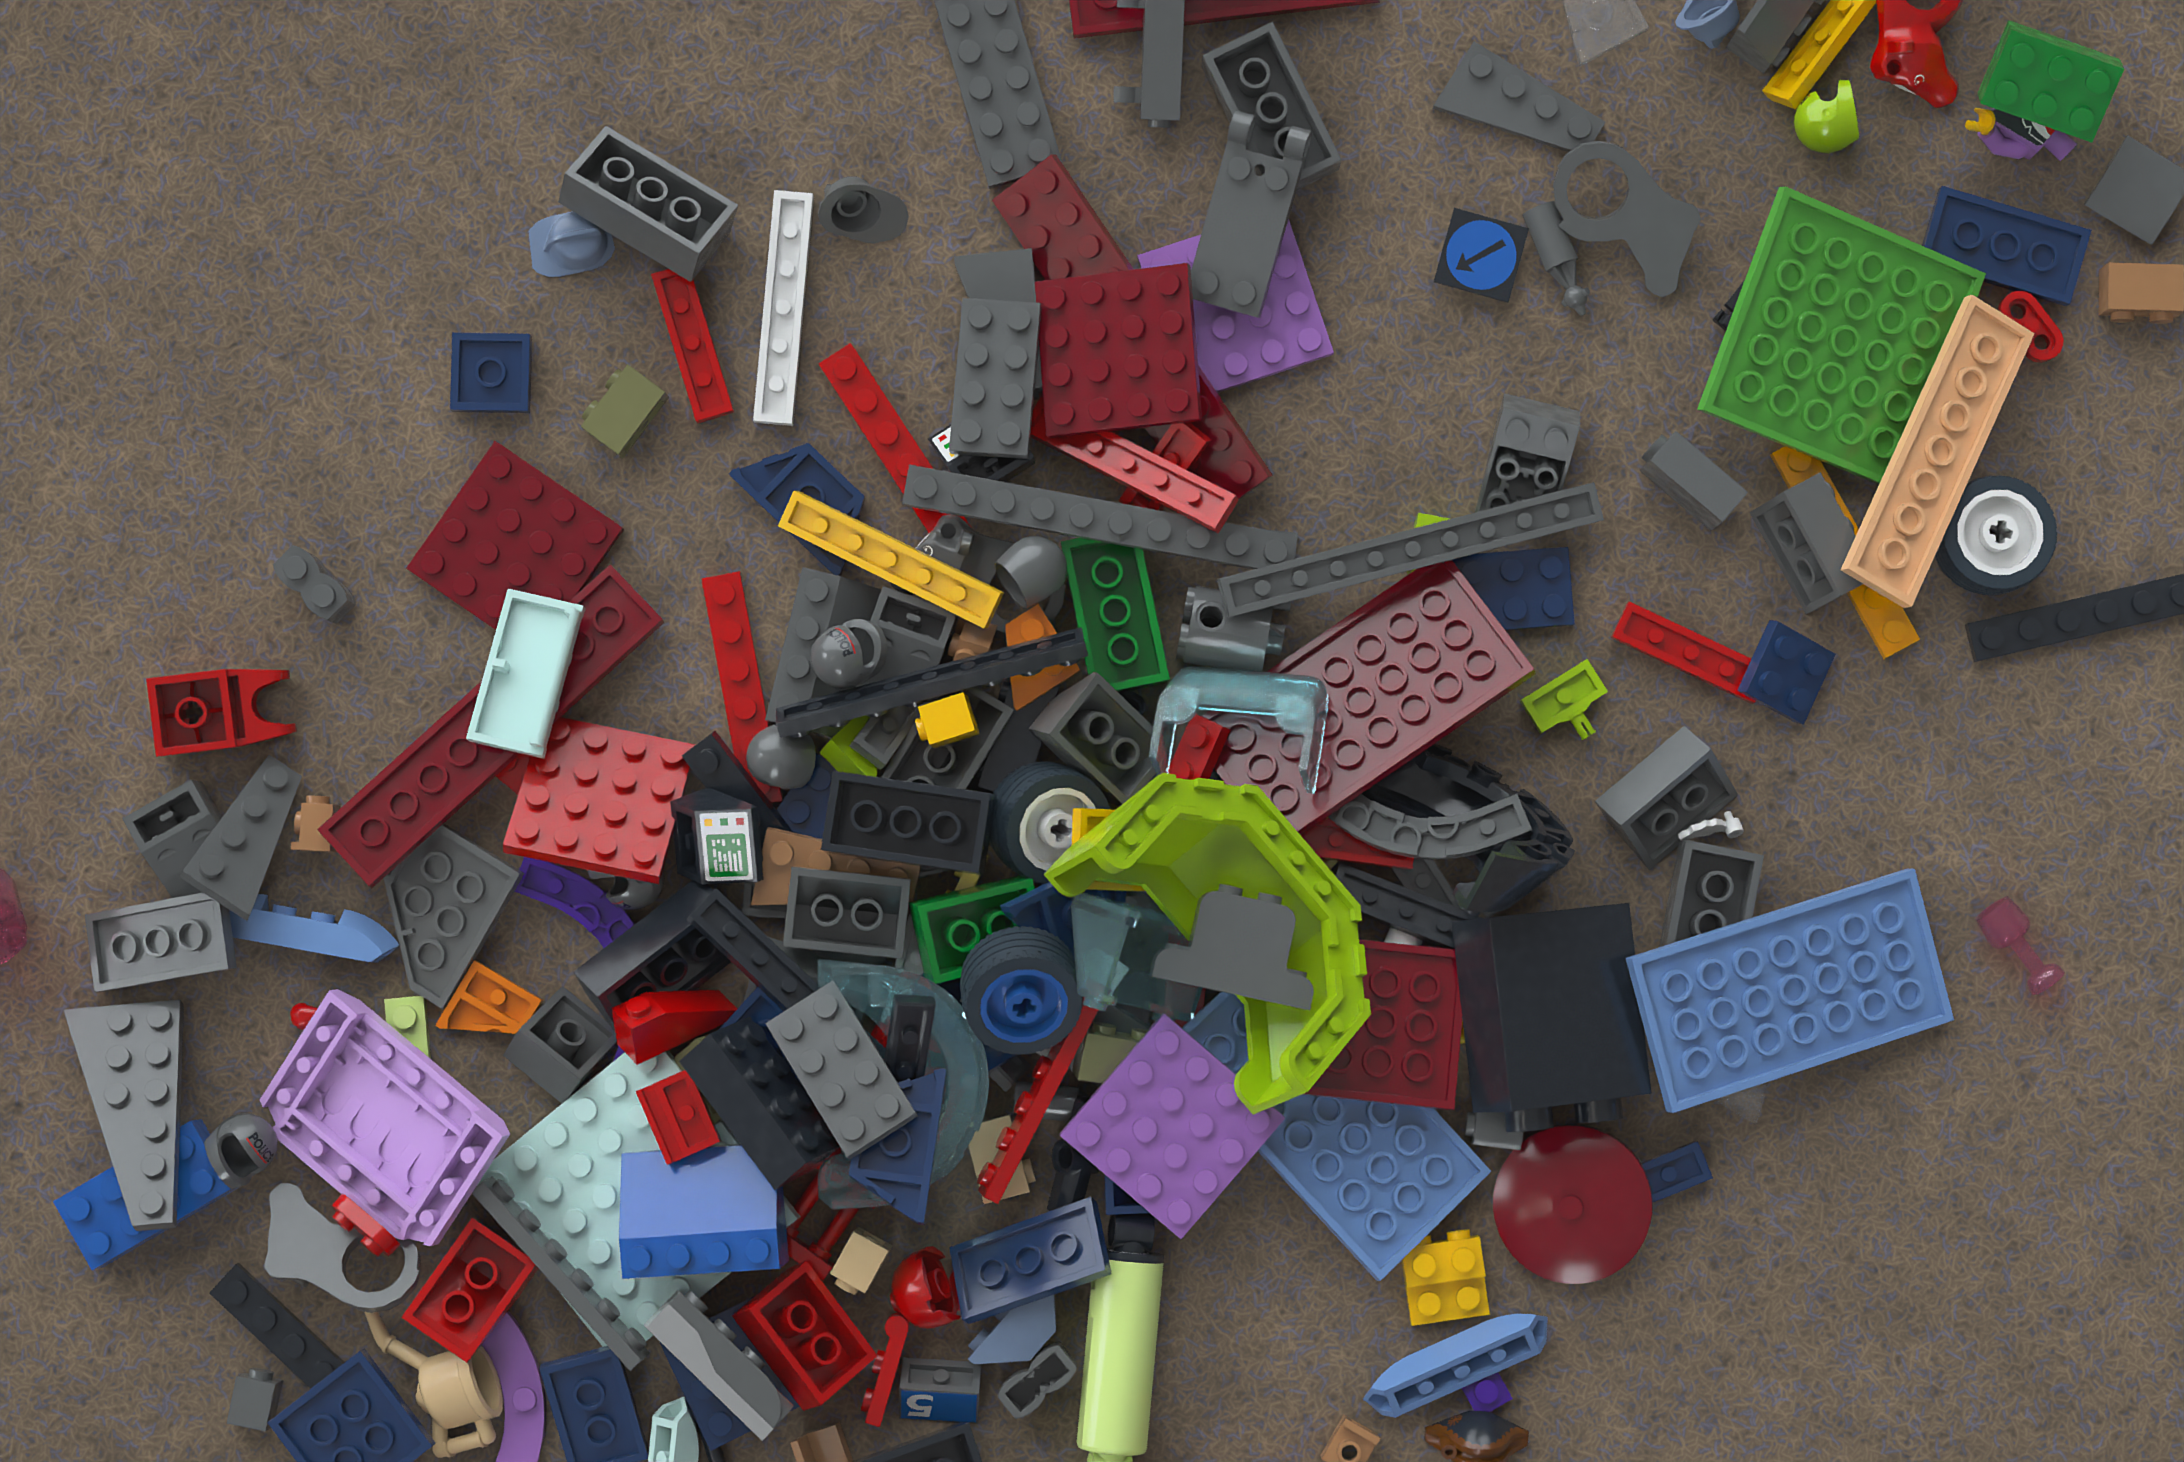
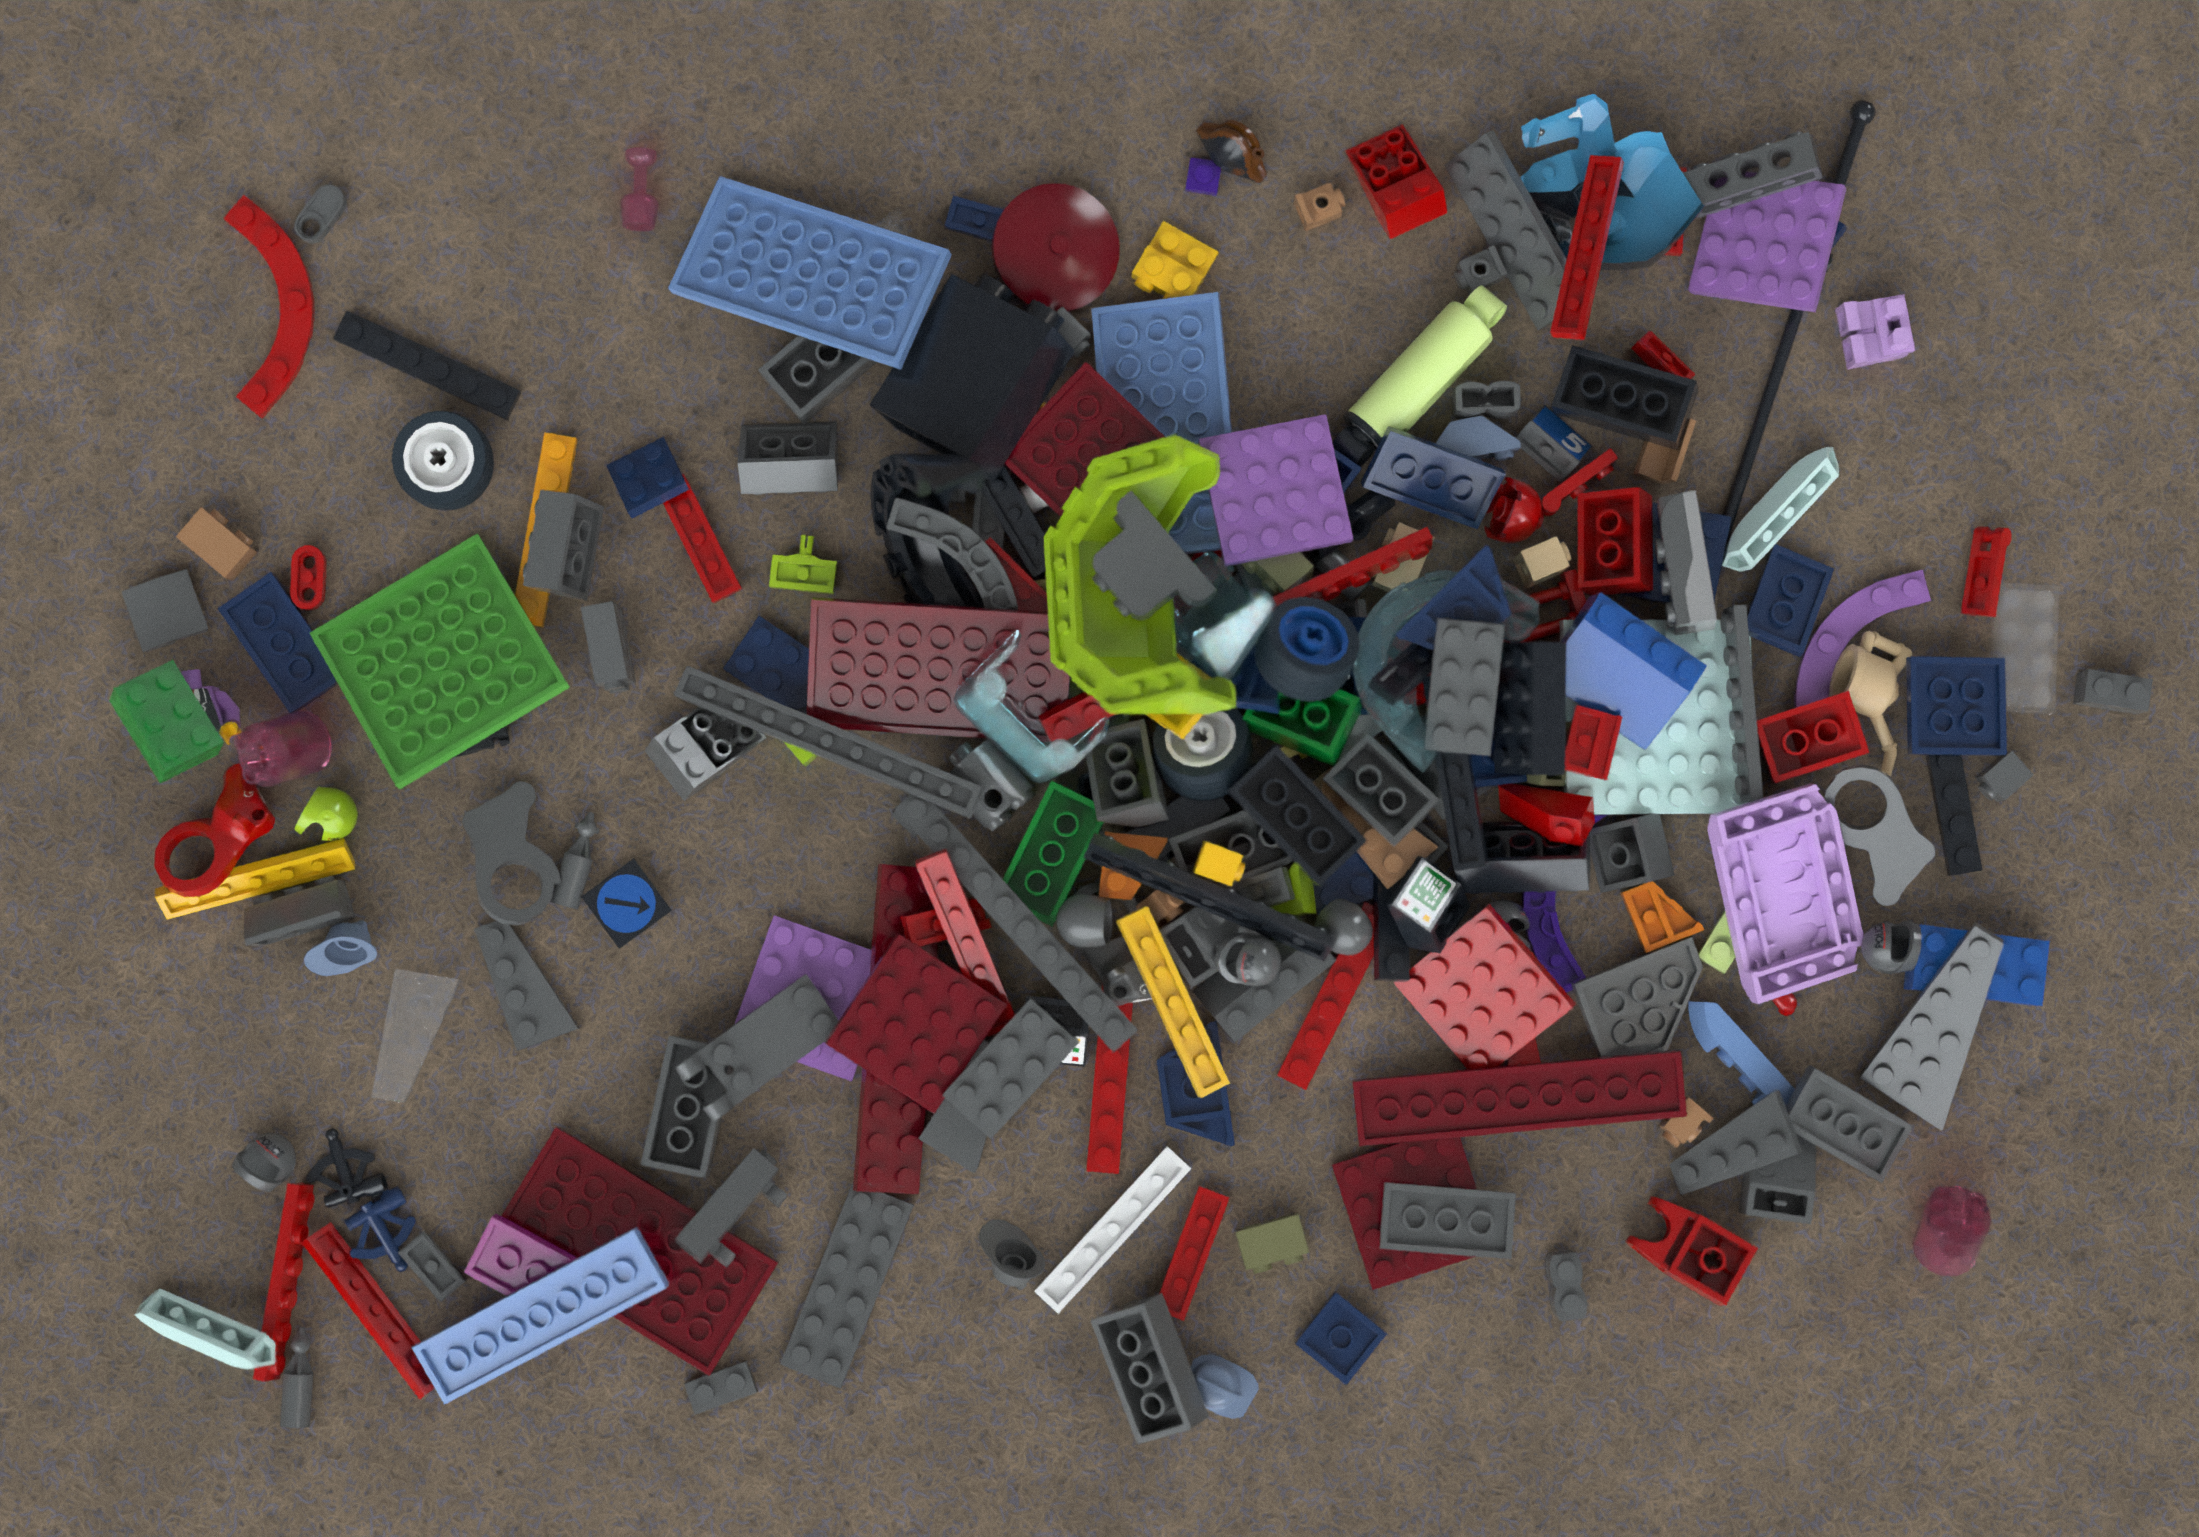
camera: 145 degrees left, 0 degrees up
(352, 1216) = (1847, 817): red plate -> none
(472, 557) = (1447, 1220): none -> dark grey plate
(525, 673) = (1471, 1113): light aqua container -> none
(1457, 1362) = (1208, 205): medium blue brick -> none
(1707, 827) = (762, 407): white piece -> none
(1920, 144) = (283, 748): none -> clear pink cylinder
(1937, 452) = (436, 539): light nougat plate -> none

